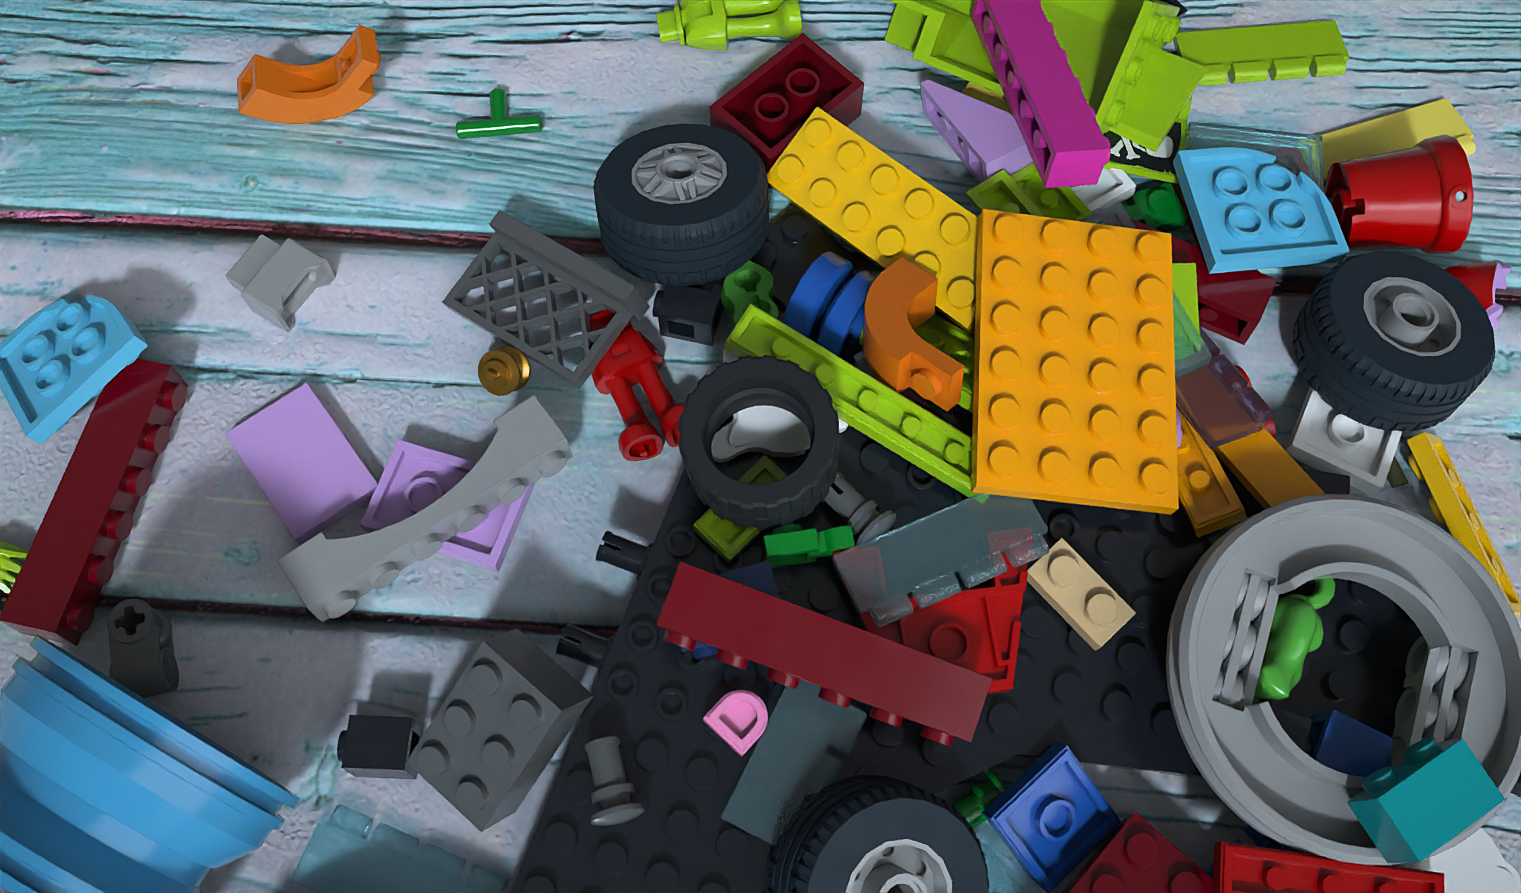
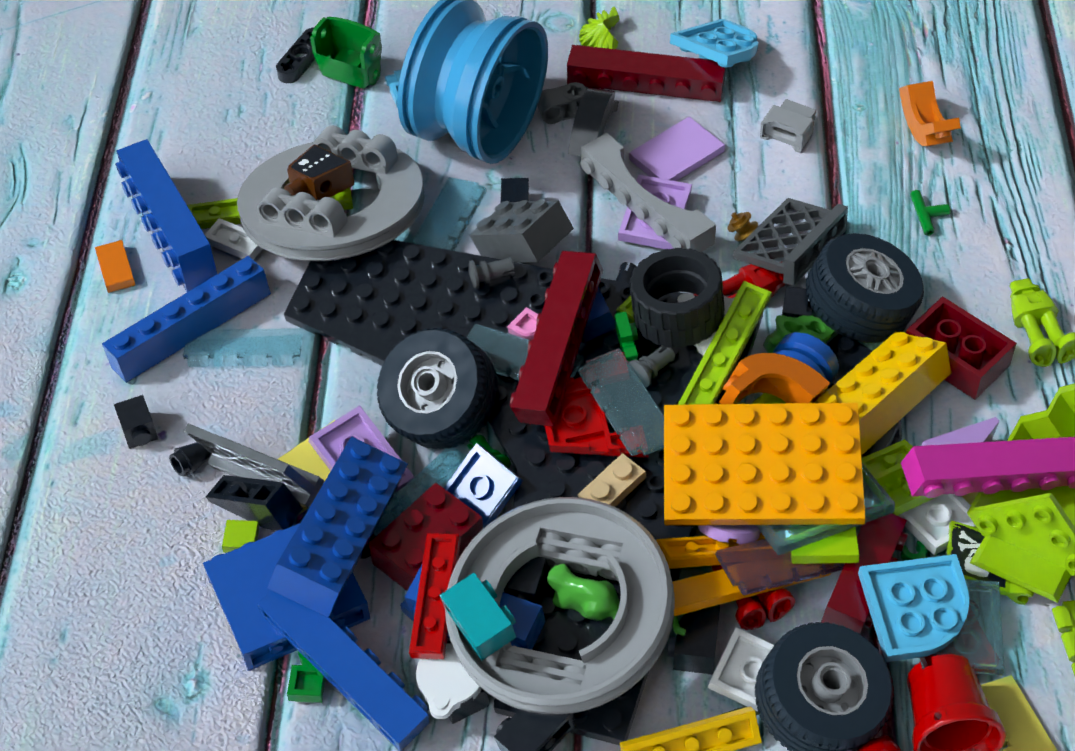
camera: 90 degrees right, 15 degrees down
(219, 592) = (591, 117): none -> black arch

